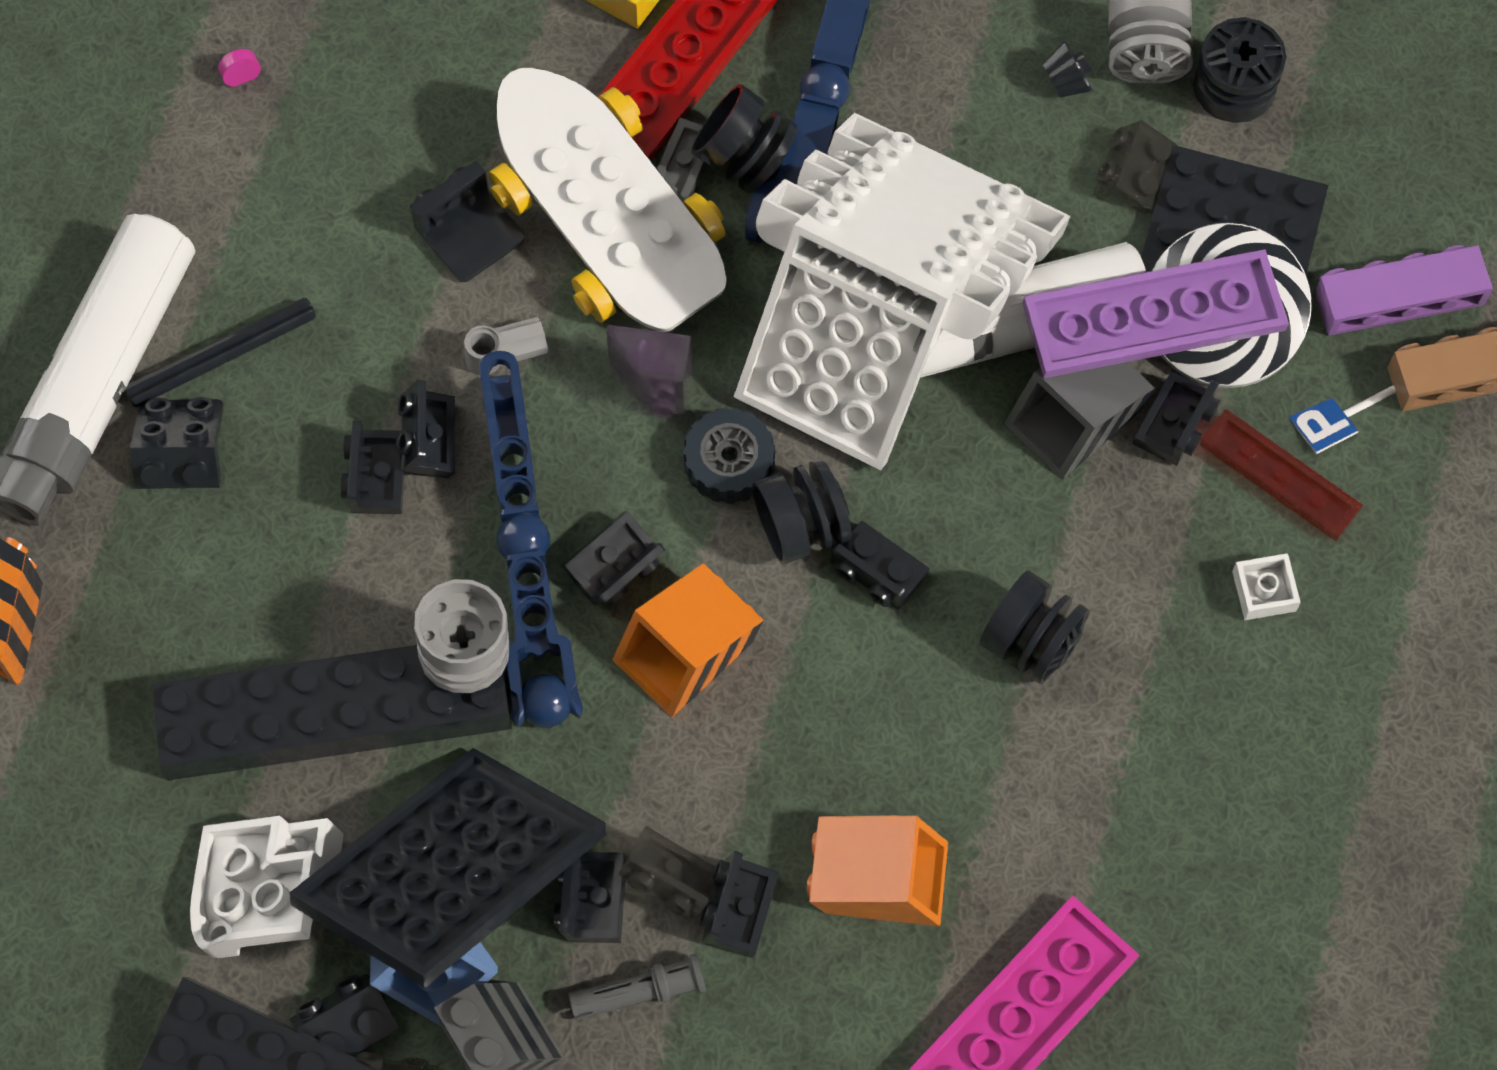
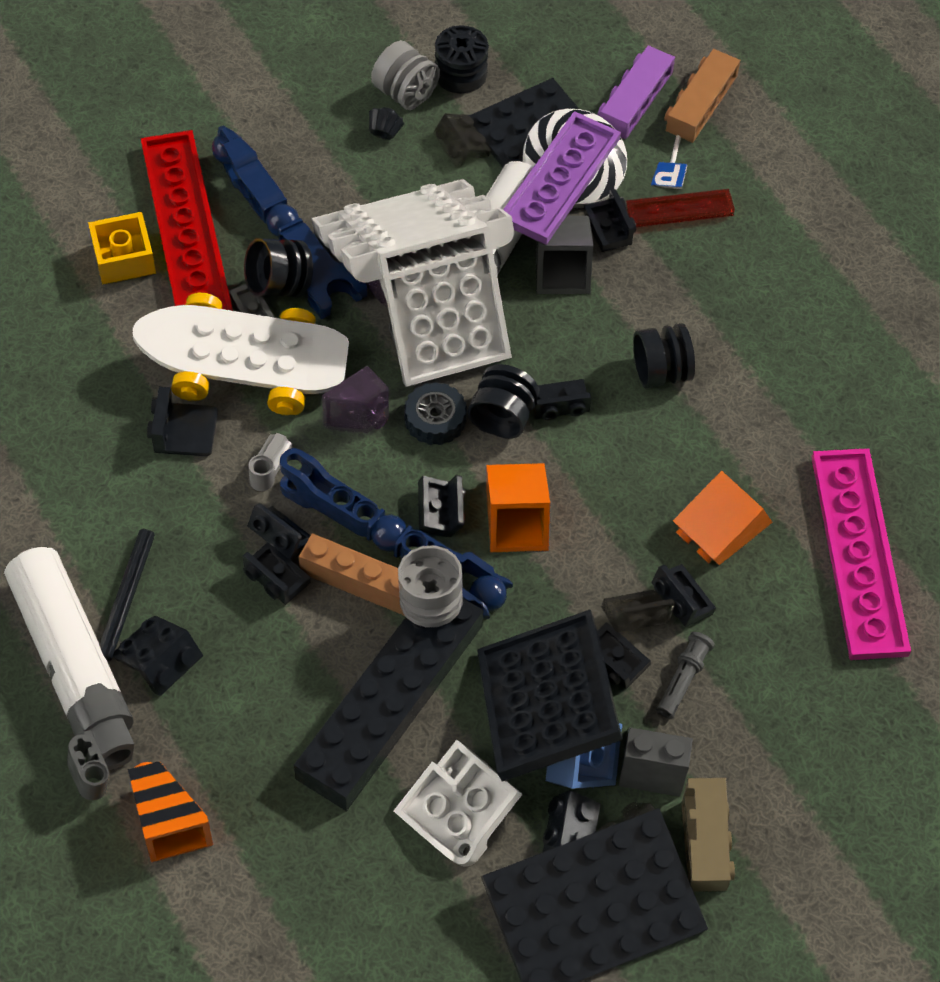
camera: 50 degrees left, 10 degrees down
(439, 525) = (351, 572): none -> medium nougat brick
(1266, 586) = (730, 257): white piece -> none

